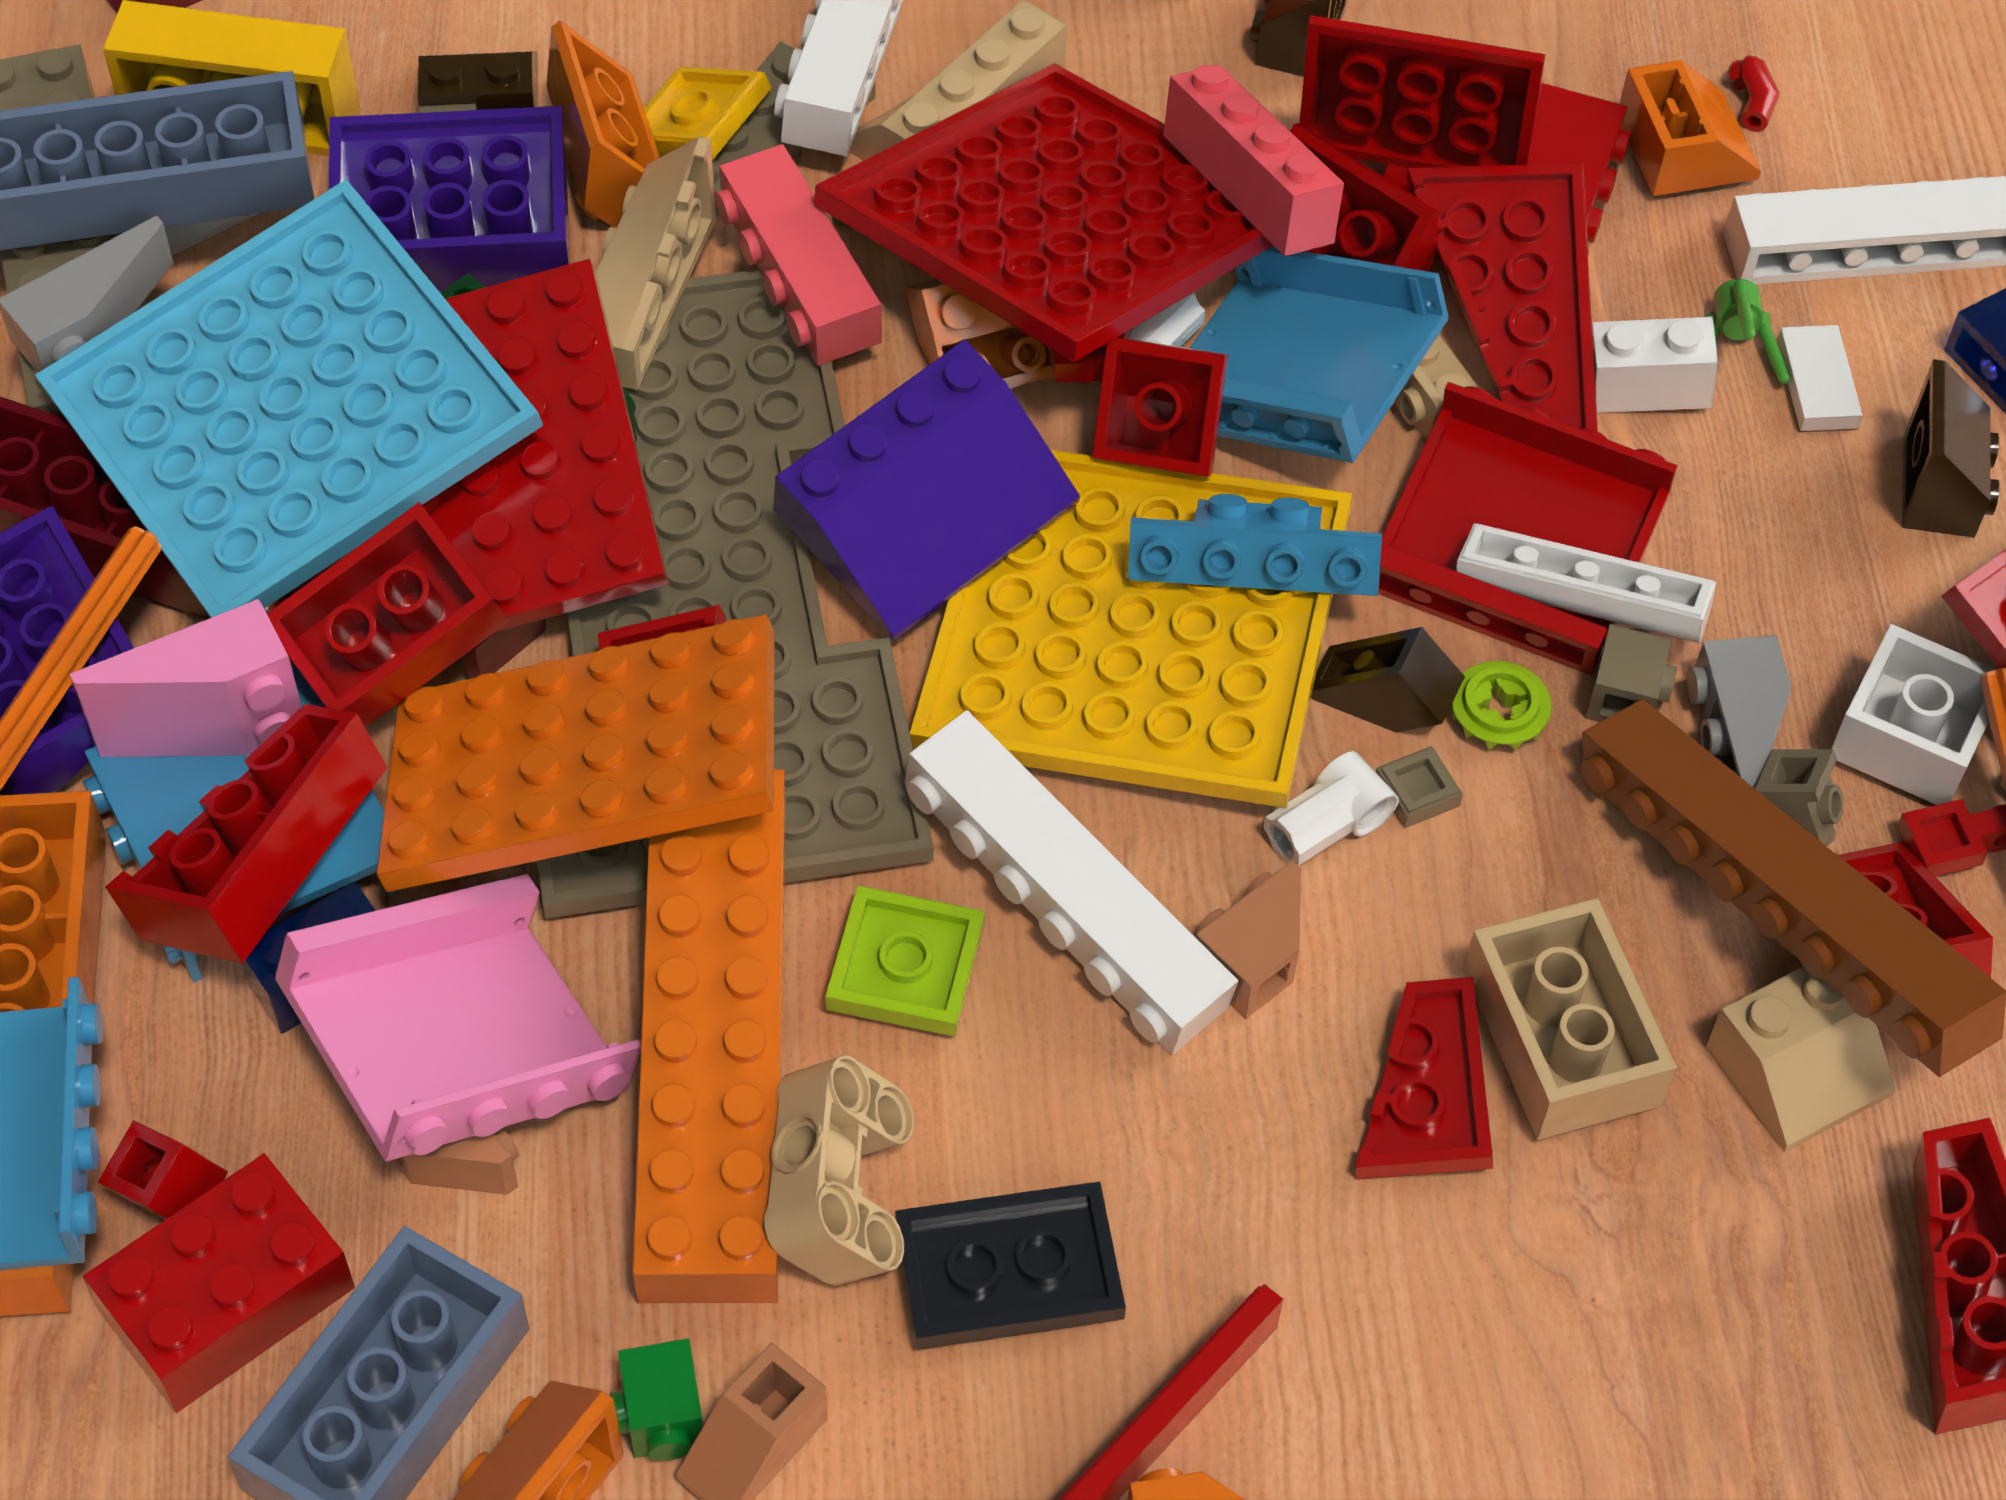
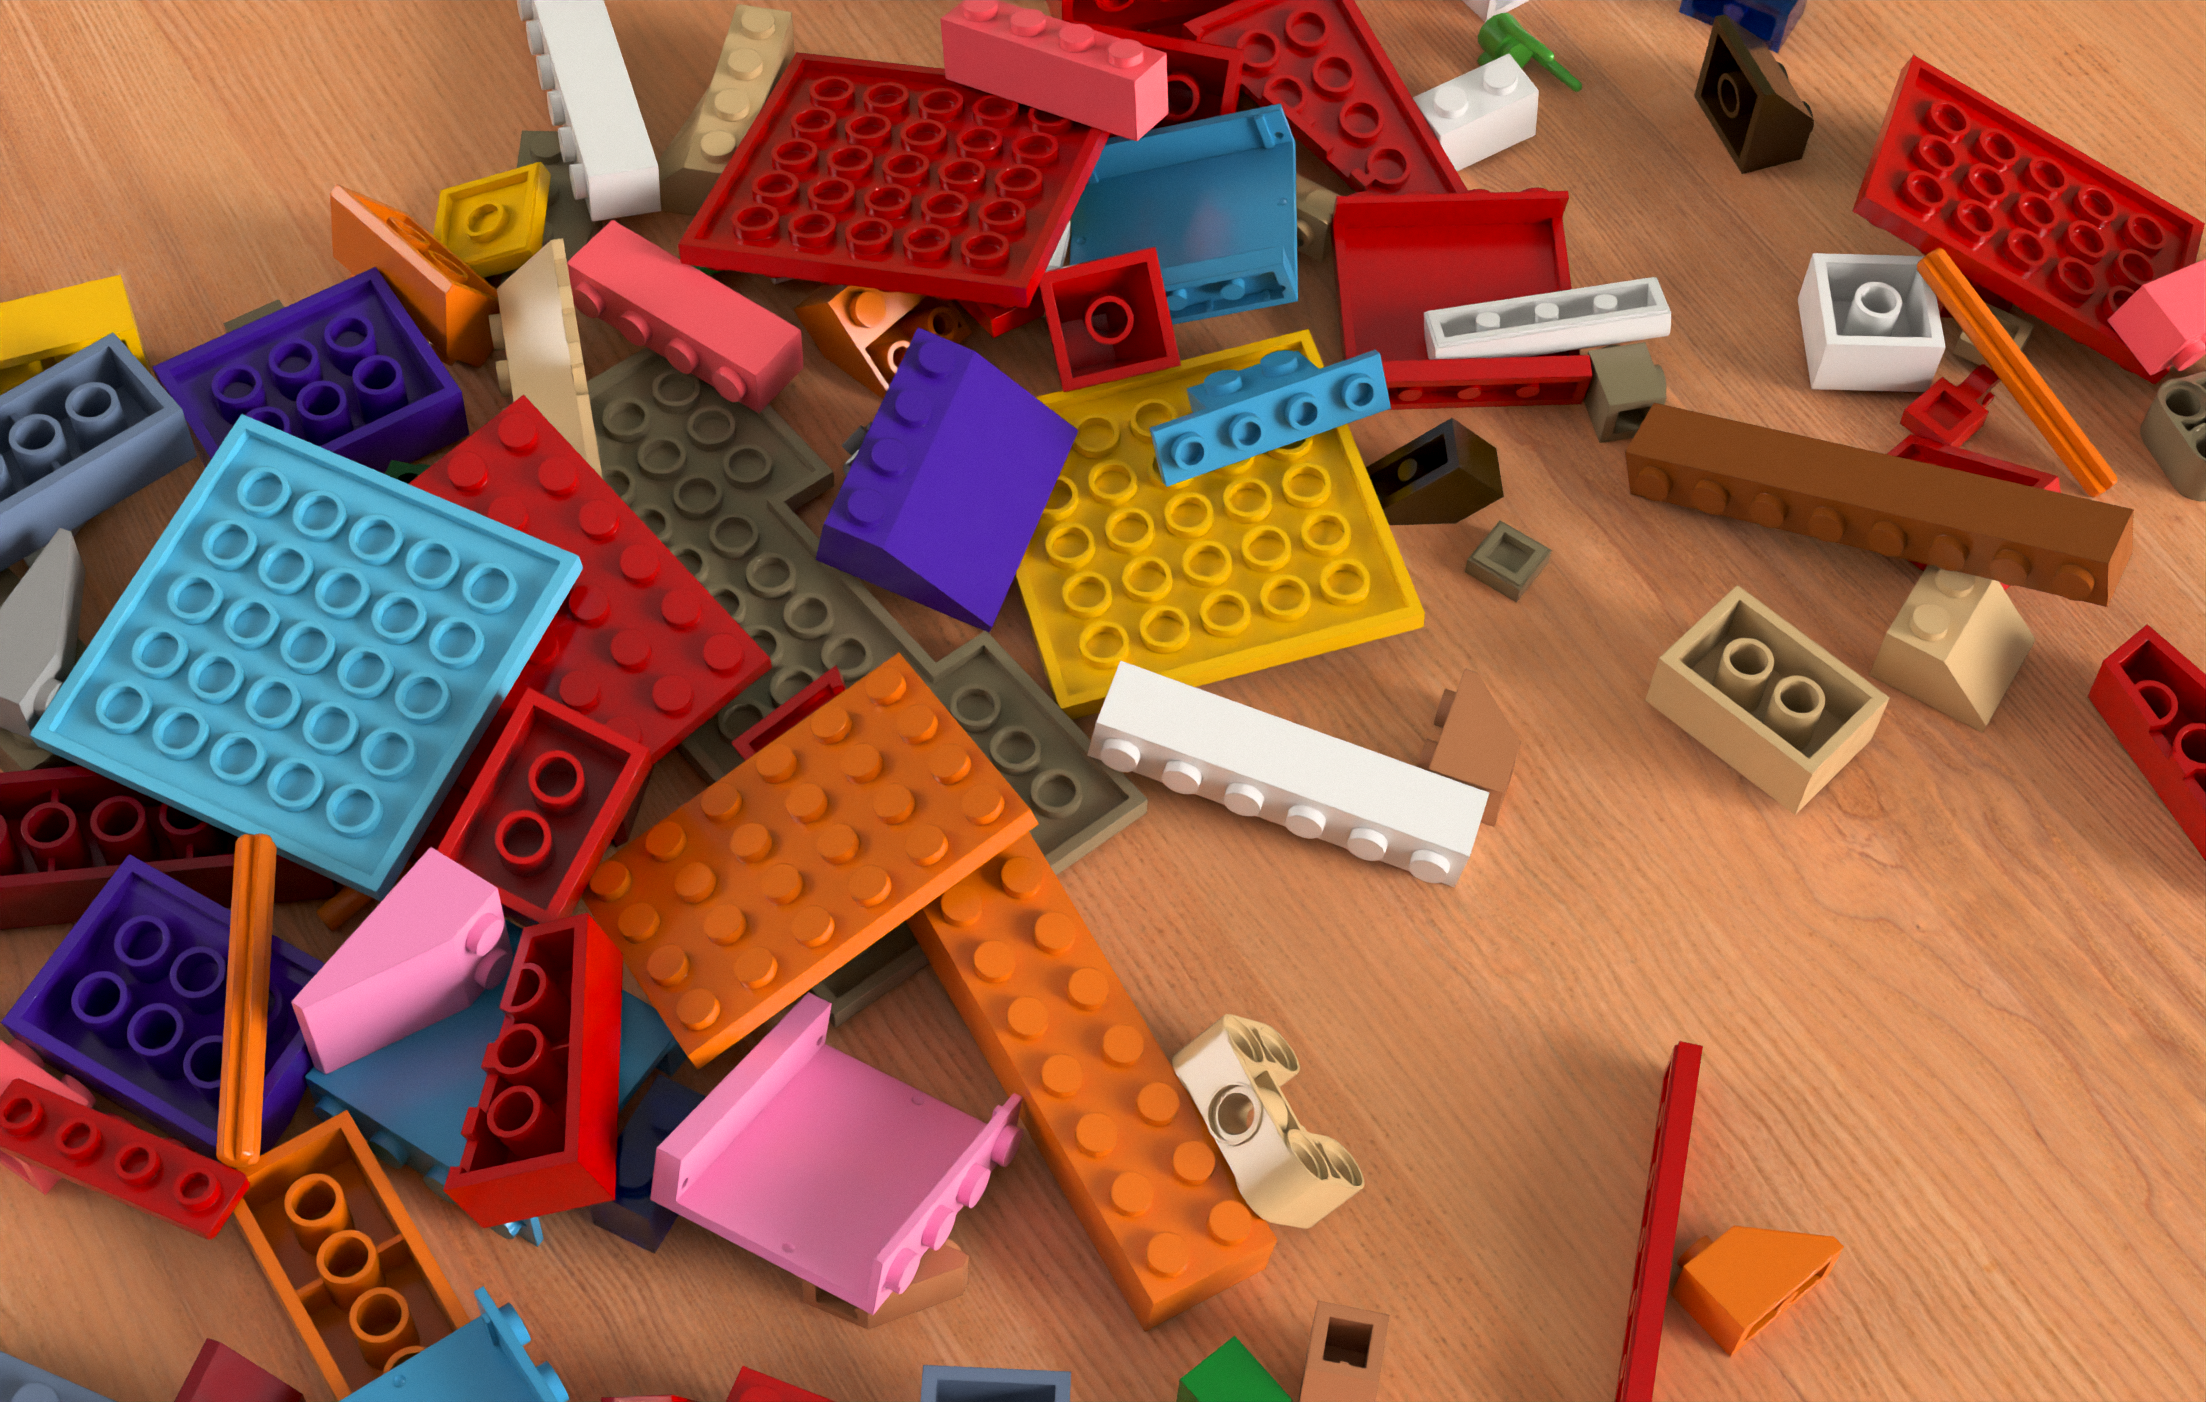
camera: 30 degrees left, 0 degrees up
(479, 79) = (274, 269): dark brown slope -> none
(905, 960) = (1185, 911): lime plate -> none
(1009, 1265) = (1450, 1133): black plate -> none
(1342, 801) = (1459, 601): white piece -> none
(1432, 1088) = (1689, 810): red wing -> none
(1513, 687) = (1530, 441): lime gear -> none
(1741, 700) = (1725, 370): light grey slope -> none
(1803, 789) = (1825, 414): dark tan brick -> none
(1819, 378) = (1605, 74): white tile -> none

